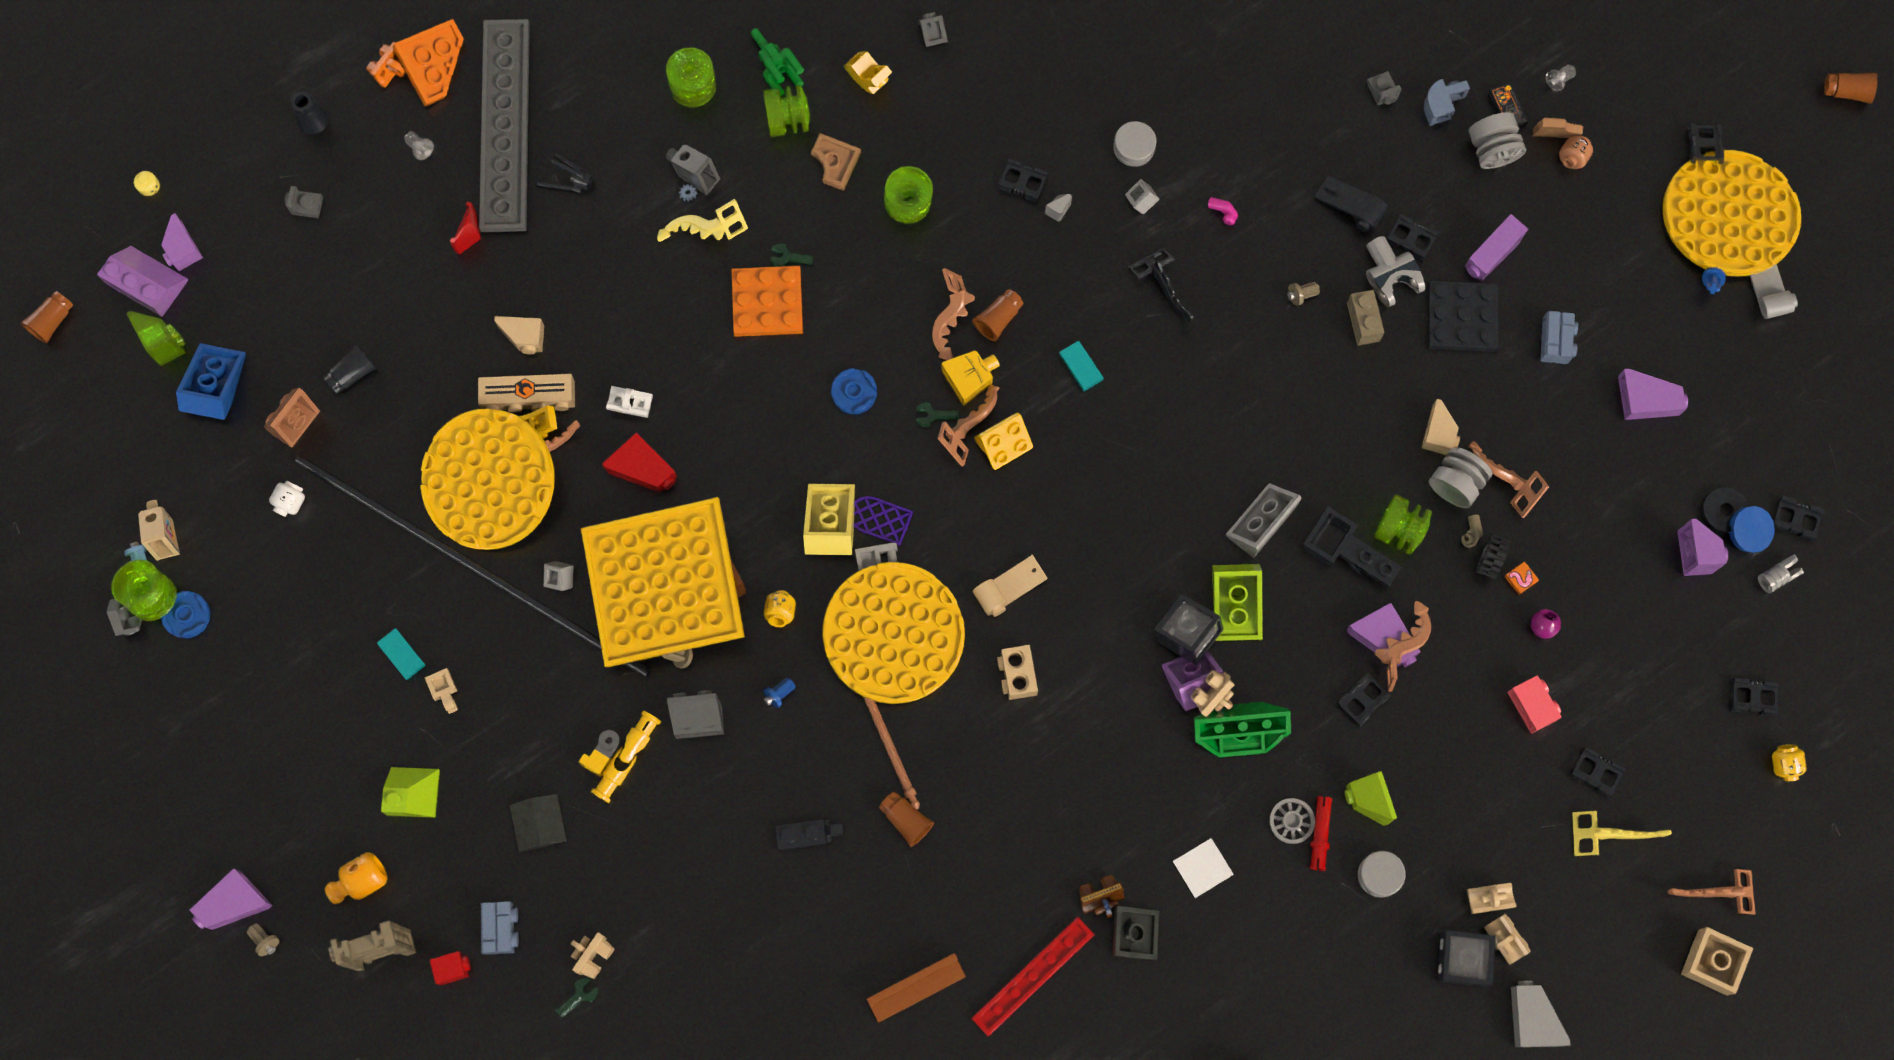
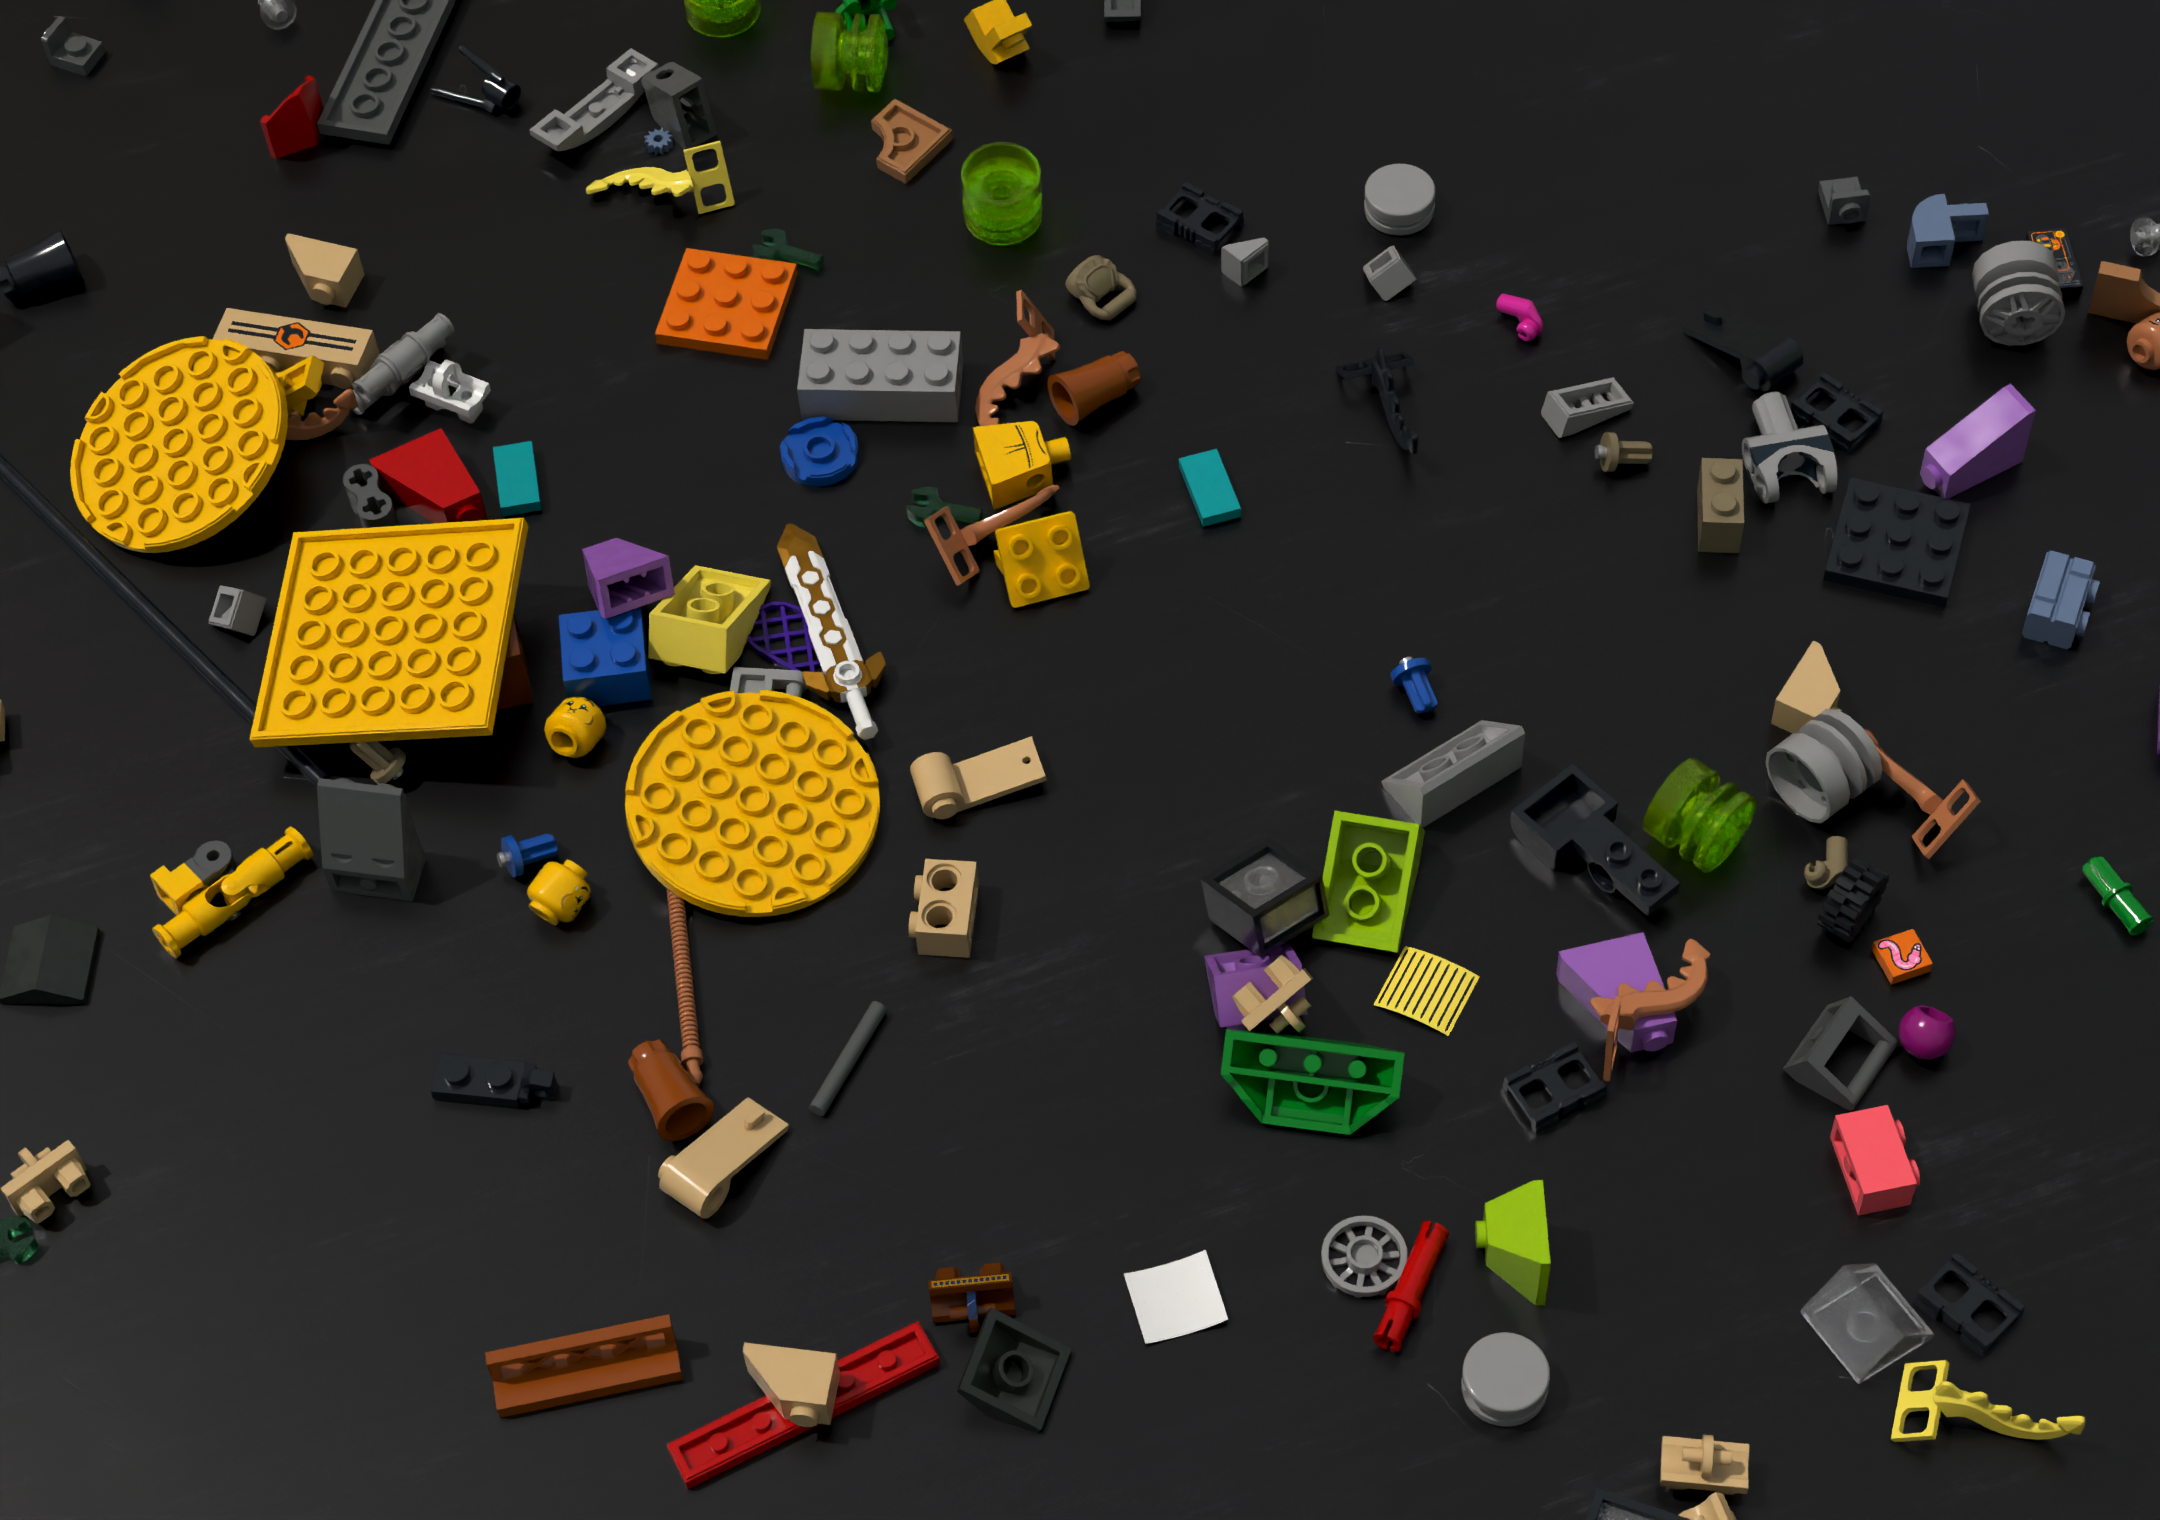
camera: 20 degrees right, 20 degrees down
(594, 391) = (401, 362): none -> light grey pin
(610, 488) = (368, 497): none -> dark grey axle
(644, 177) = (599, 108): none -> light grey slope
(687, 449) = (517, 478): none -> teal tile
(778, 511) = (626, 576): none -> medium lavender slope
(781, 559) = (605, 657): none -> blue brick
(806, 713) = (559, 892): none -> yellow head
(875, 335) = (880, 375): none -> light grey brick
(901, 514) = (843, 669): none -> sword
(946, 848) = (703, 1170): none -> tan door
(976, 240) = (1094, 280): none -> dark tan piece
(992, 773) = (848, 1058): none -> dark grey bar
(1030, 972) = (796, 1381): none -> tan slope
(1230, 471) = (1413, 676): none -> blue piece
(1264, 273) = (1566, 419): none -> light grey slope
(1282, 656) = (1427, 989): none -> light yellow sticker
(1494, 642) = (1818, 1045): none -> dark grey tile
(1549, 795) = (1865, 1320): none -> clear slope
(1622, 515) = (2117, 895): none -> green axle

